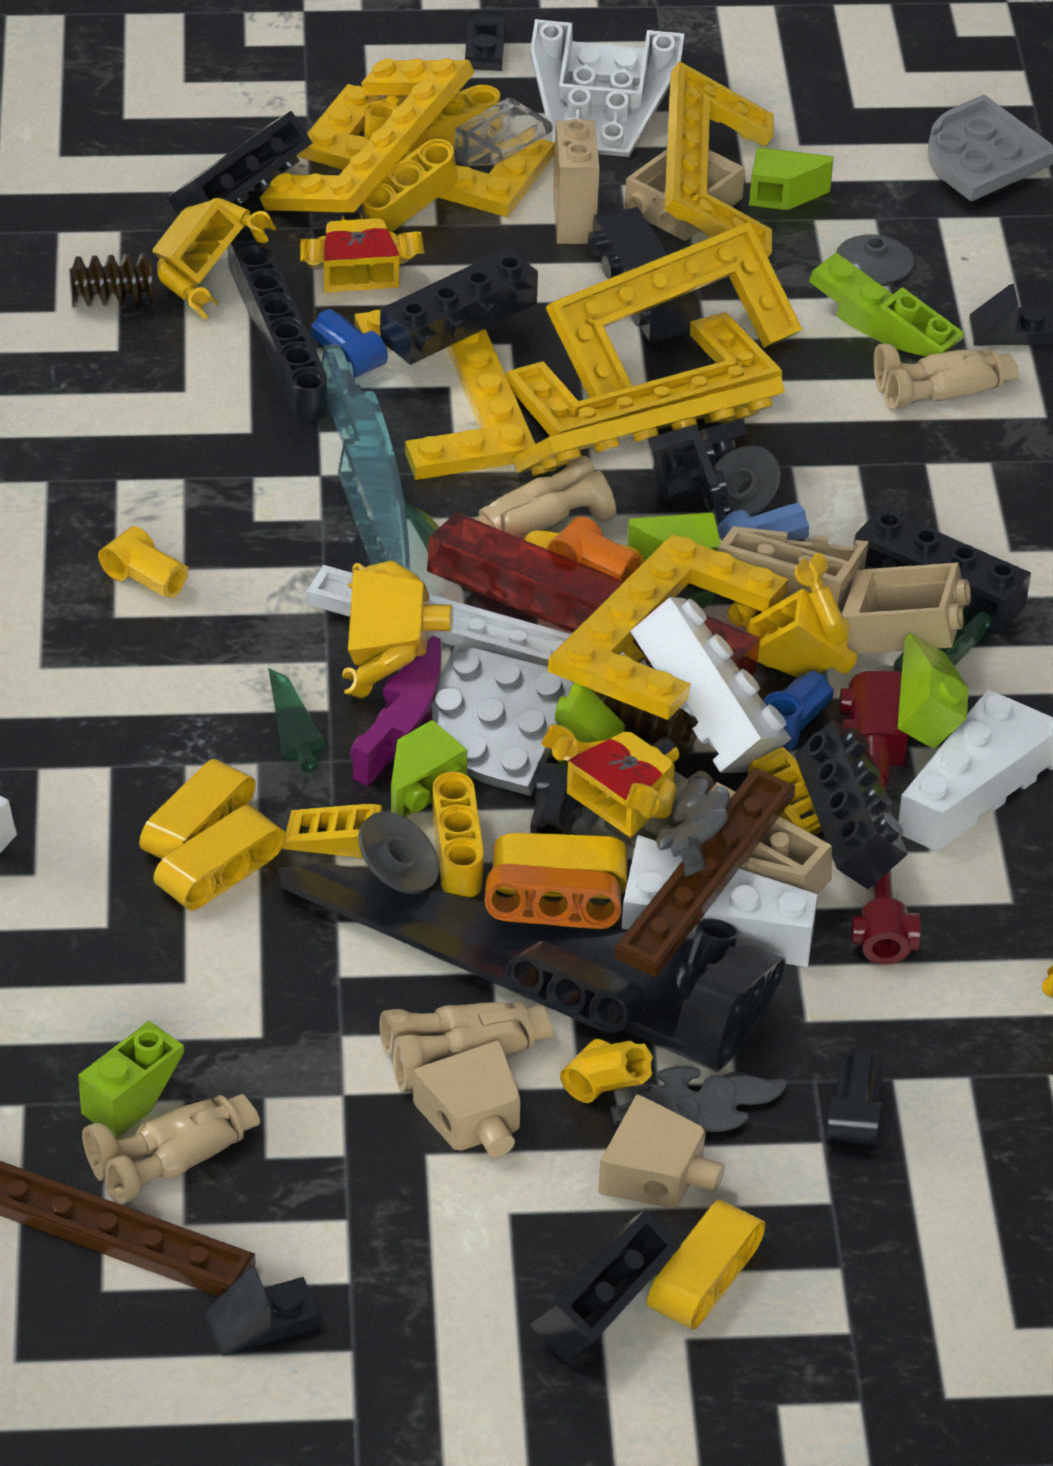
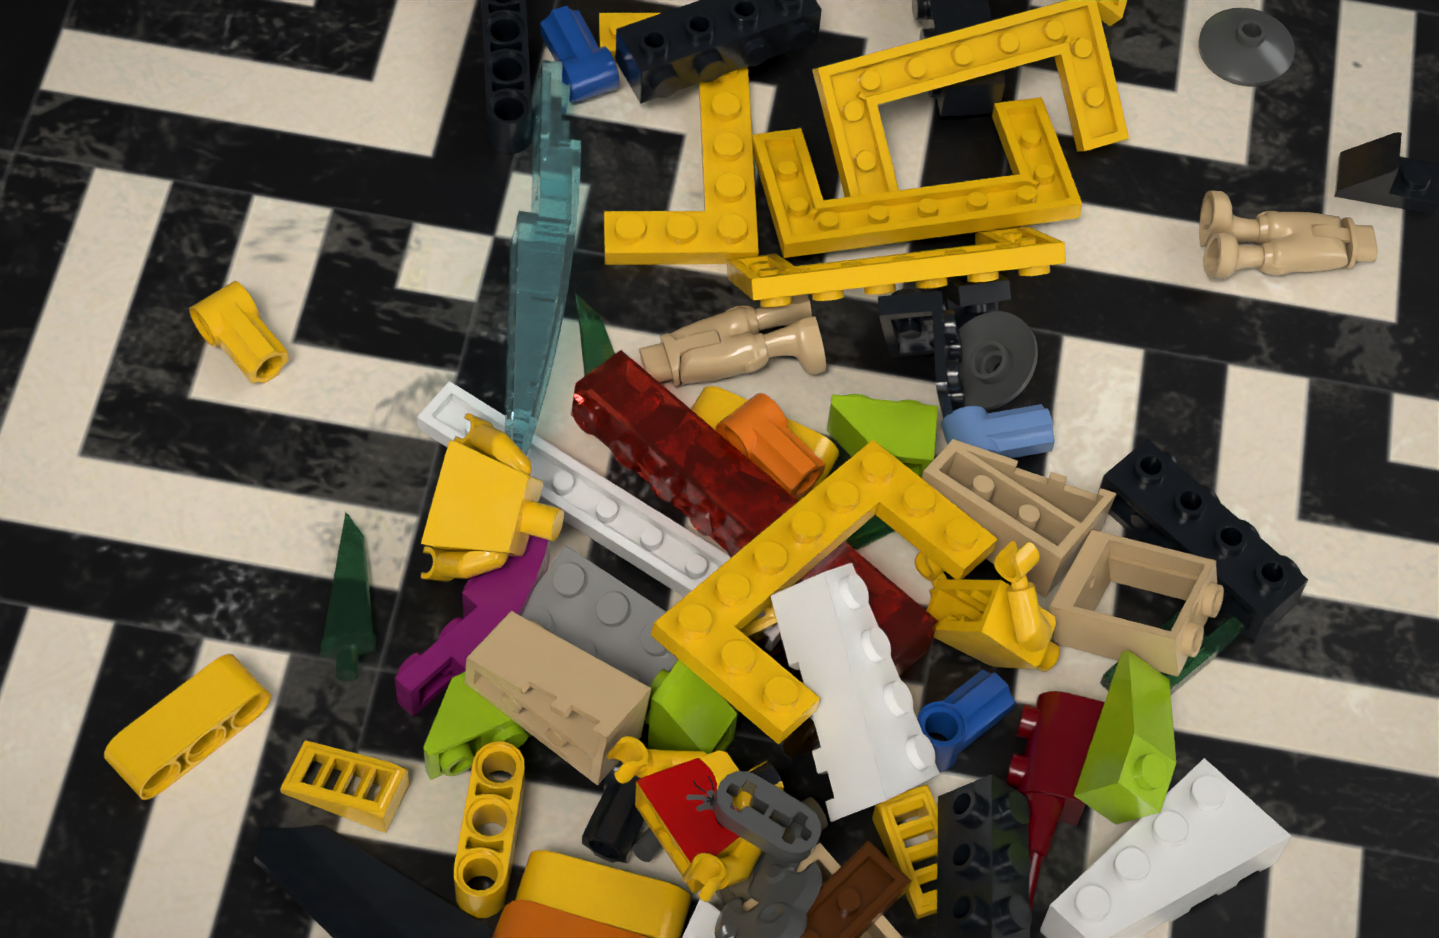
camera: 10 degrees right, 15 degrees up
(219, 857) = (192, 800): yellow beam -> none
(398, 852) = (427, 842): dark grey dish -> none
(488, 723) = (558, 693): none -> tan wedge
(675, 760) = (769, 814): none -> dark grey beam
(885, 316) = (1240, 143): lime slope -> none

